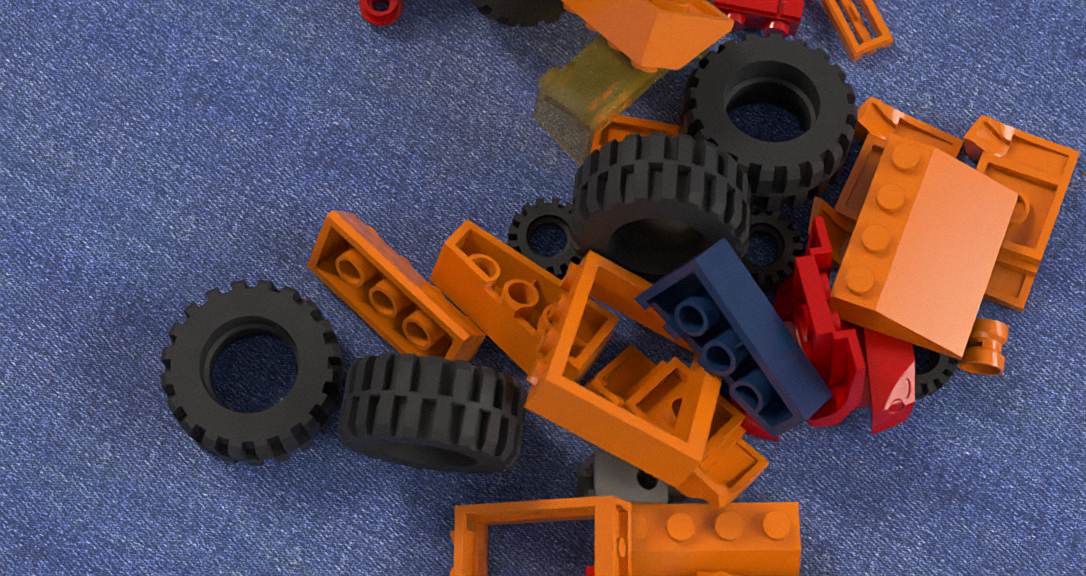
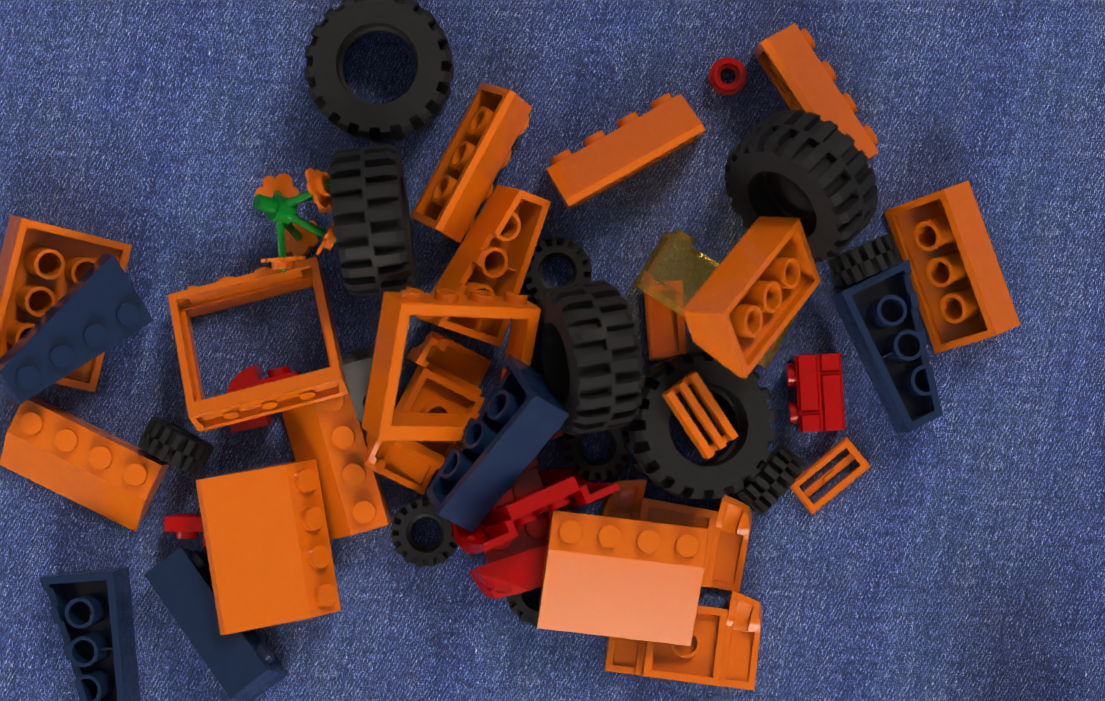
camera: 75 degrees right, 15 degrees up
(426, 527) = (280, 202): none -> plant
(433, 128) = (624, 151): none -> orange slope
(755, 97) = (718, 441): none -> orange tile
(834, 449) = (407, 546): none -> black tyre
(853, 58) = (773, 480): none -> black tyre
(984, 348) = (561, 646): orange wheel -> none

